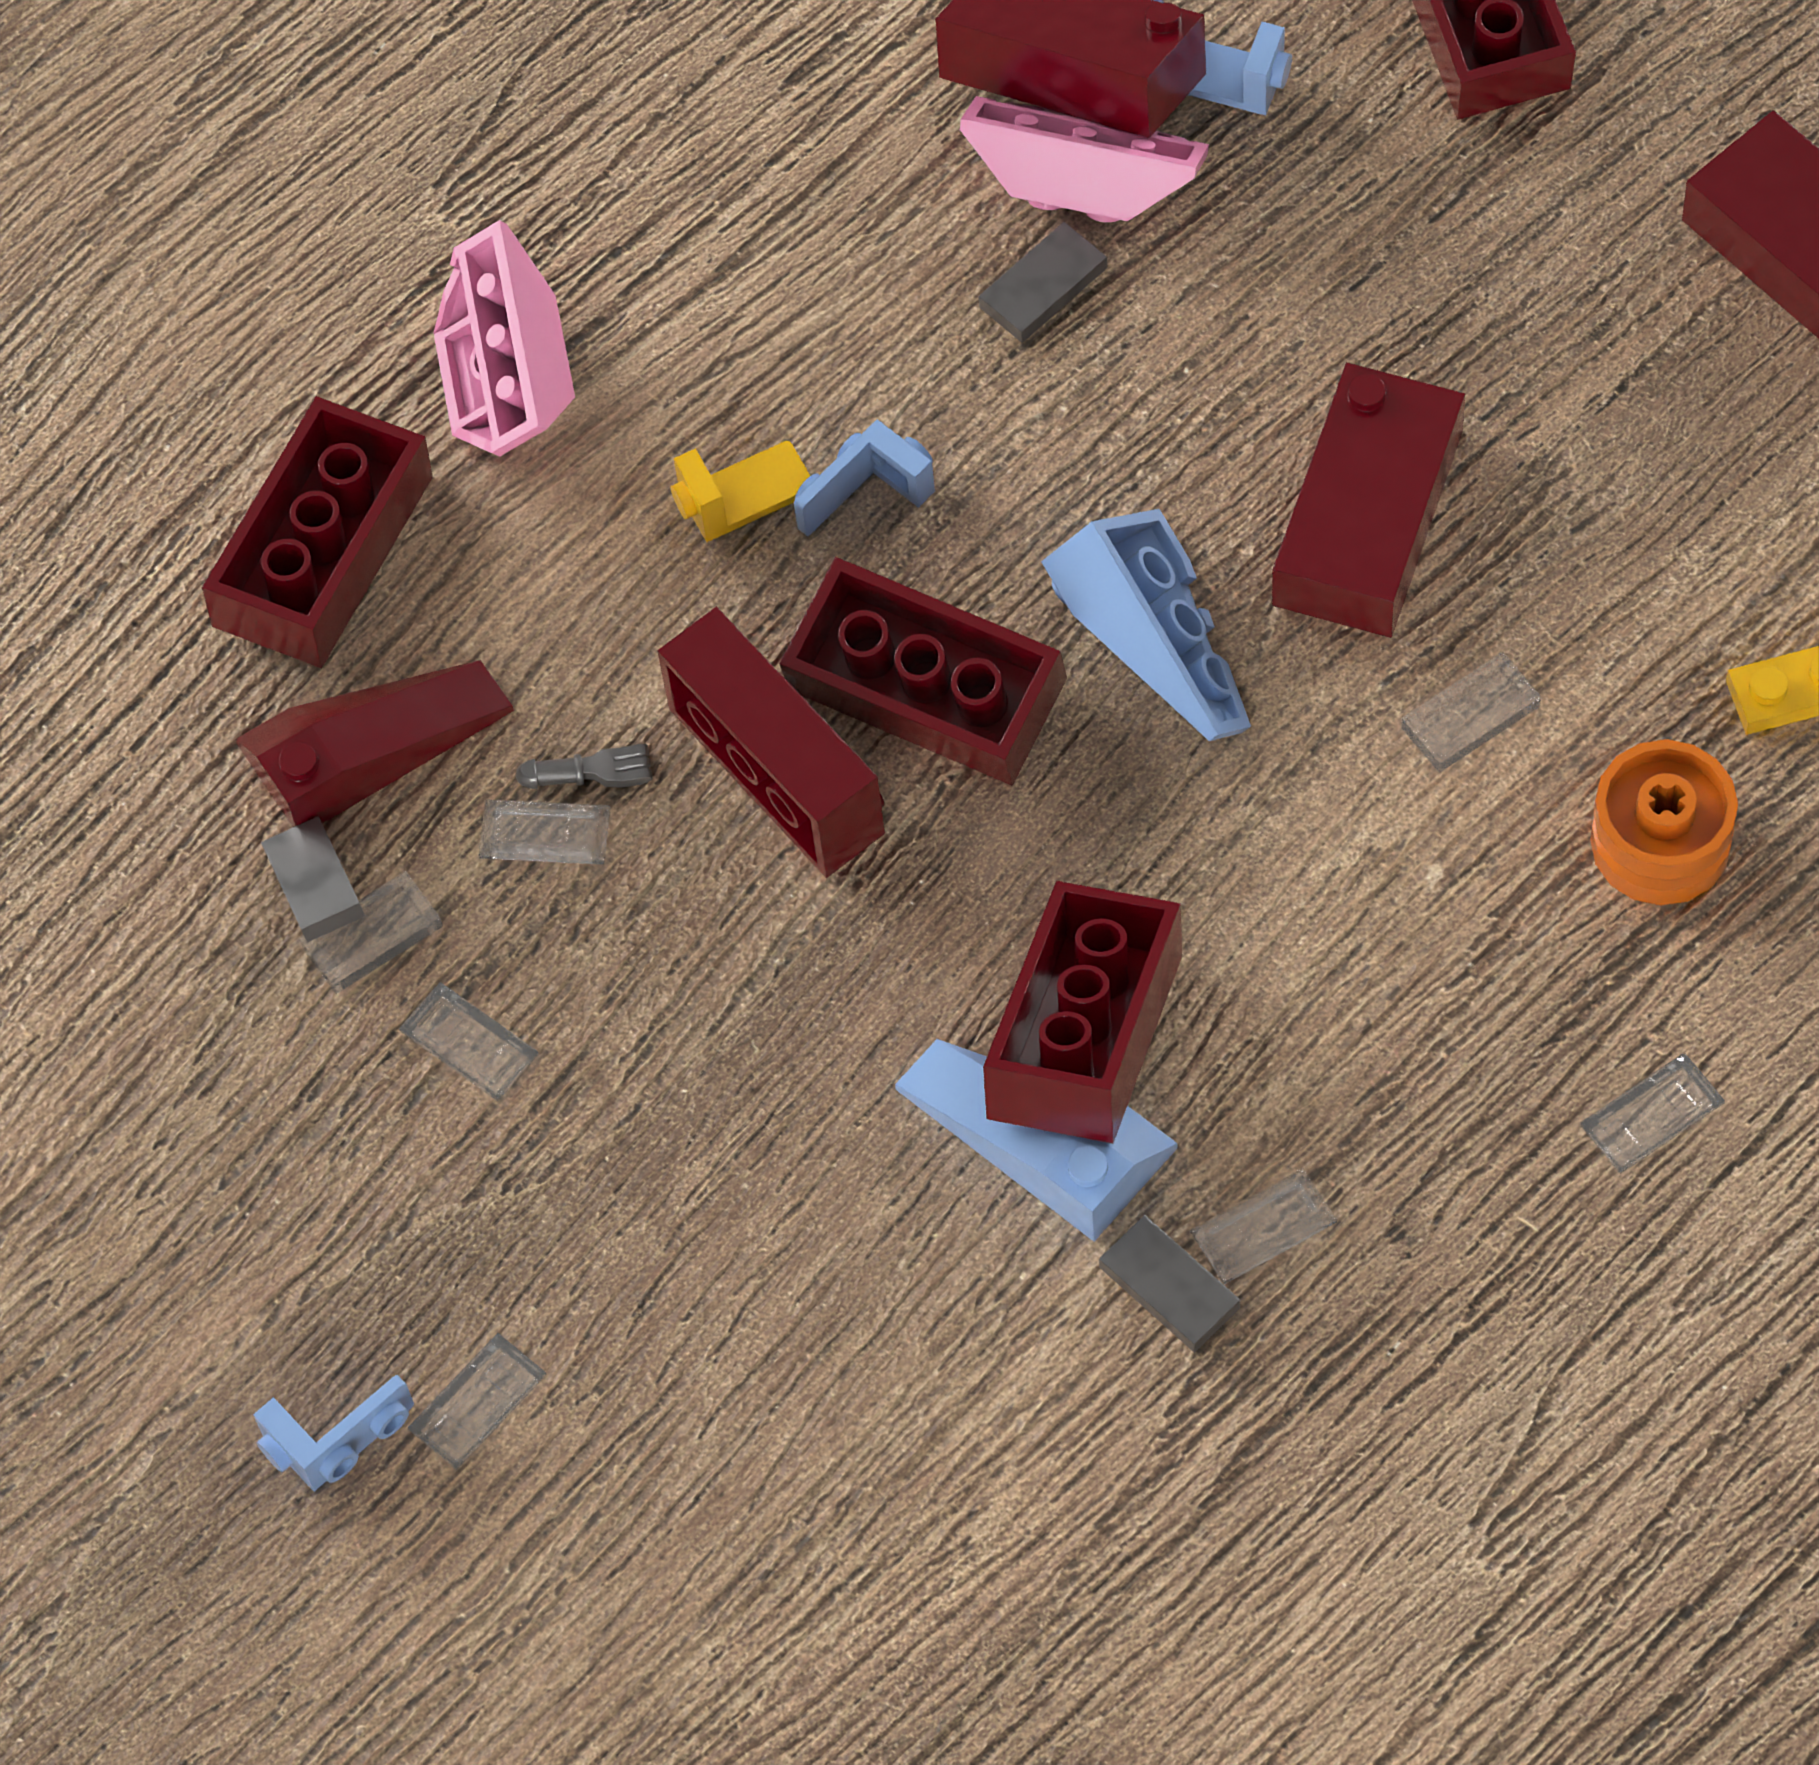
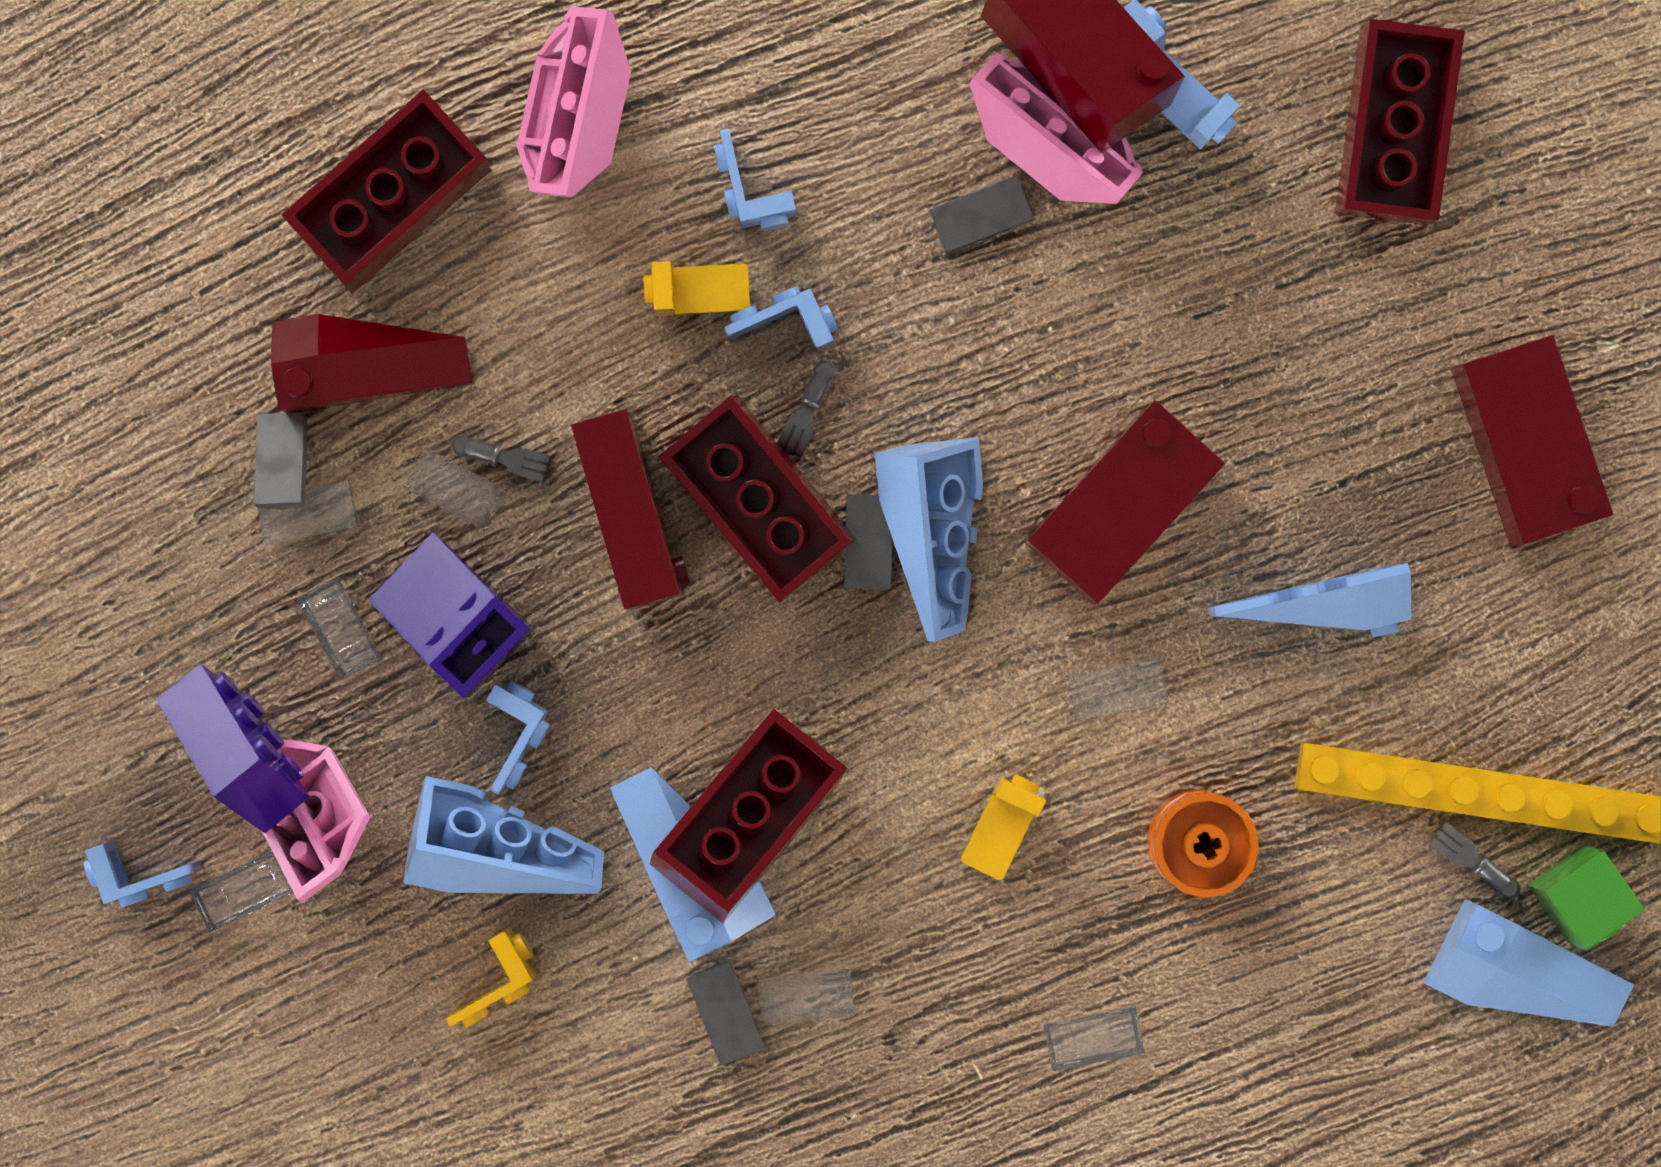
camera: 15 degrees right, 25 degrees up
(398, 1190) = (233, 747): none -> dark purple brick
(511, 1243) = (323, 830): none -> bright pink wedge
(609, 960) = (450, 616): none -> slope
(744, 1221) = (481, 848): none -> light blue wedge
(745, 1030) = (518, 703): none -> light blue bracket
(770, 381) = (769, 211): none -> light blue bracket
(867, 1324) = (514, 957): none -> yellow bracket
(937, 580) = (801, 424): none -> flat silver piece
(1092, 691) = (870, 556): none -> flat silver tile
(1409, 907) = (1003, 826): none -> yellow bracket
(1691, 494) = (1356, 601): none -> light blue wedge

